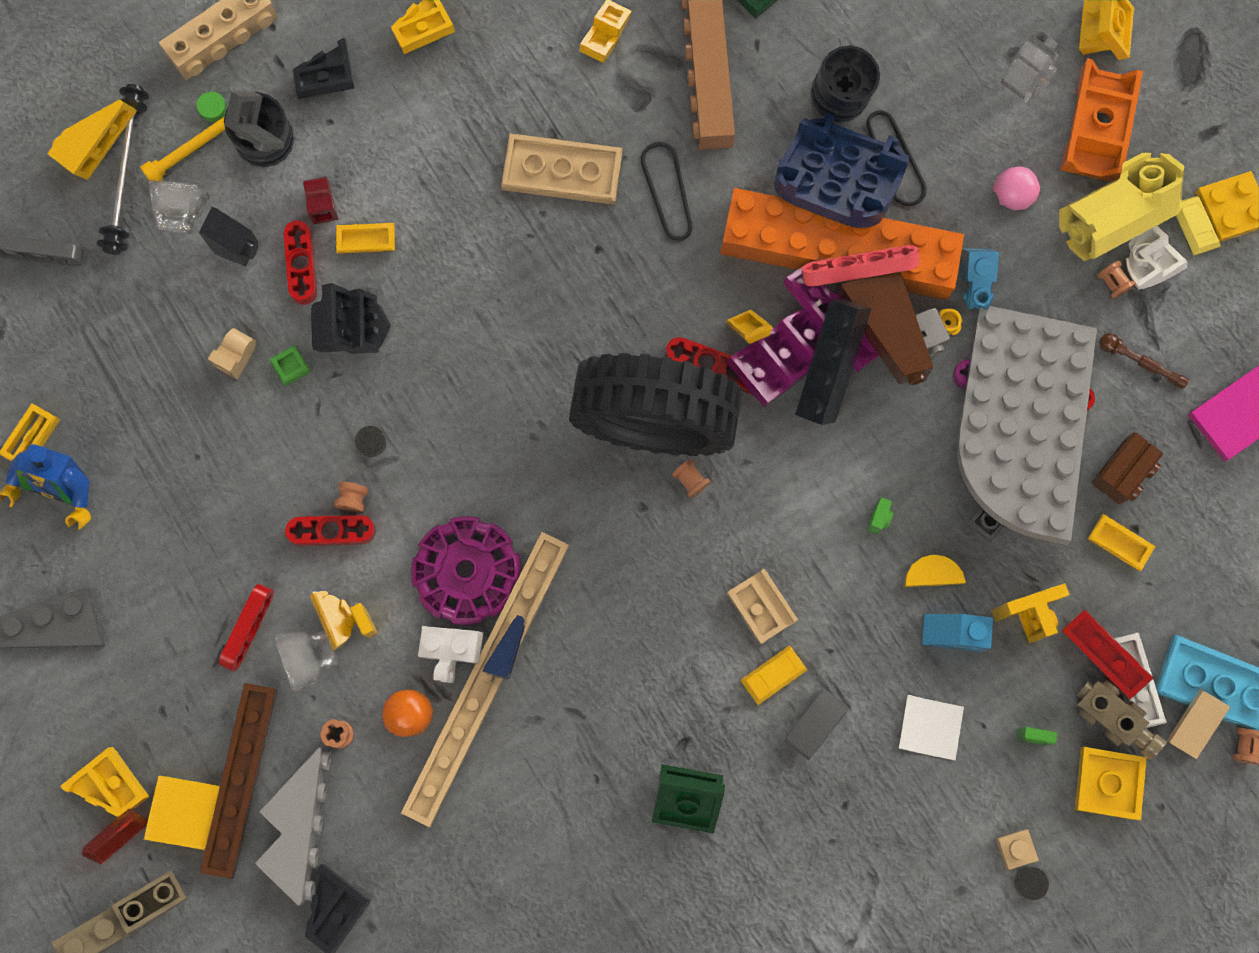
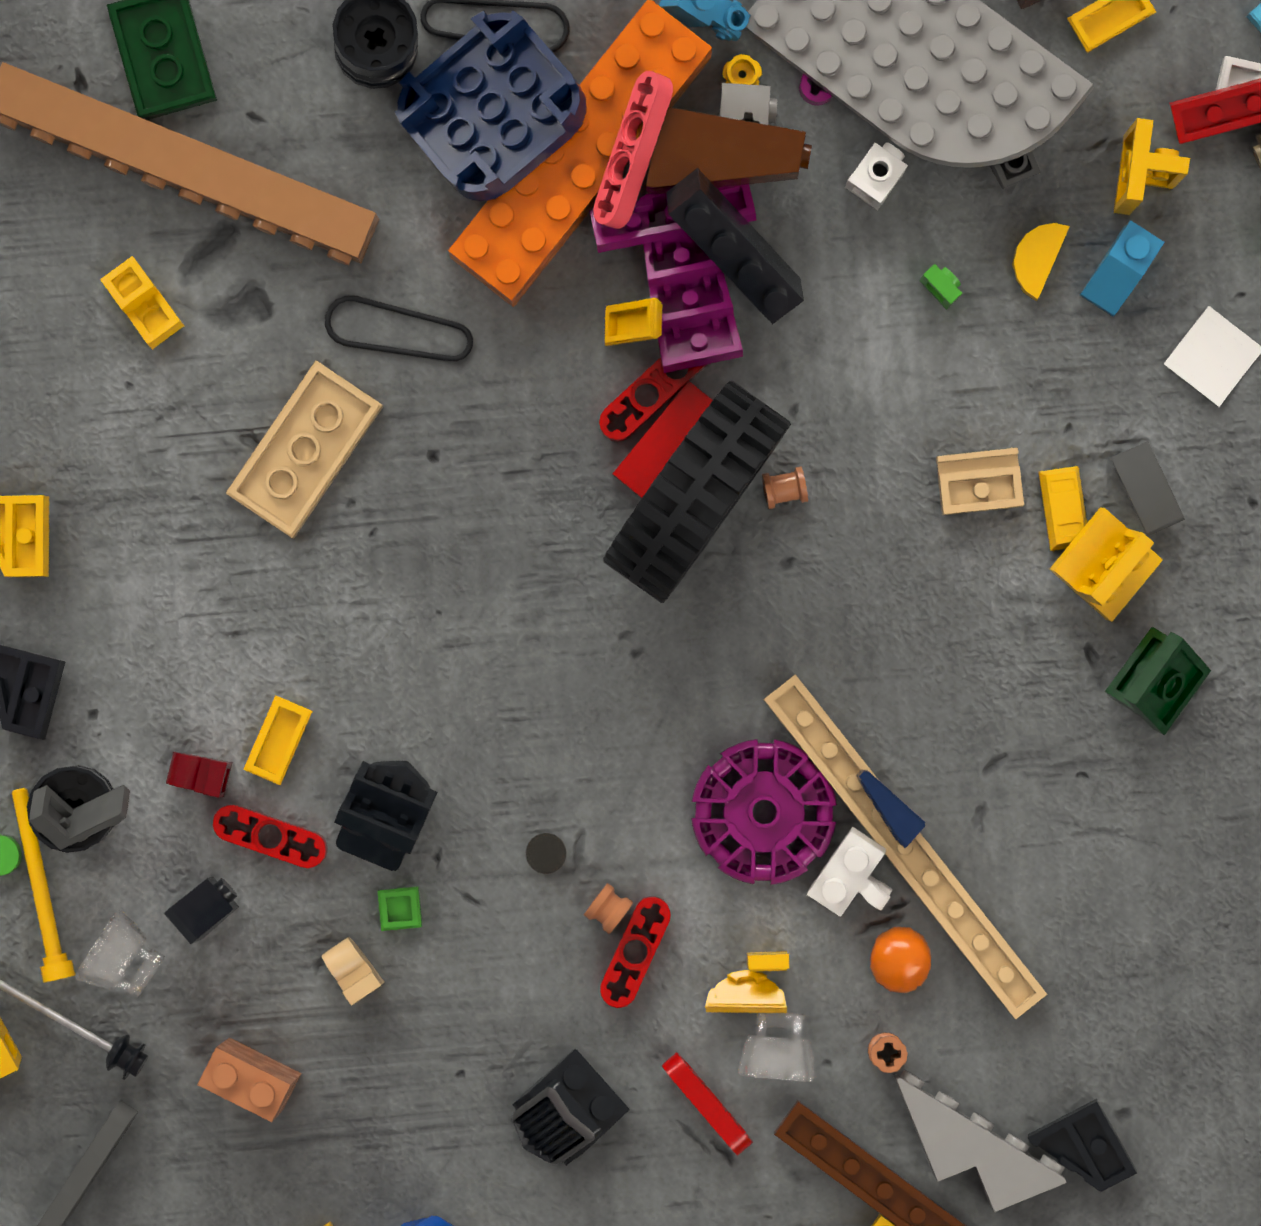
camera: 60 degrees left, 10 degrees up
(127, 316) = (249, 1079): none -> nougat brick
(200, 535) = (566, 1111): none -> black piece
(750, 721) = (1107, 563): none -> yellow bracket
(923, 445) = (871, 187): none -> white brick

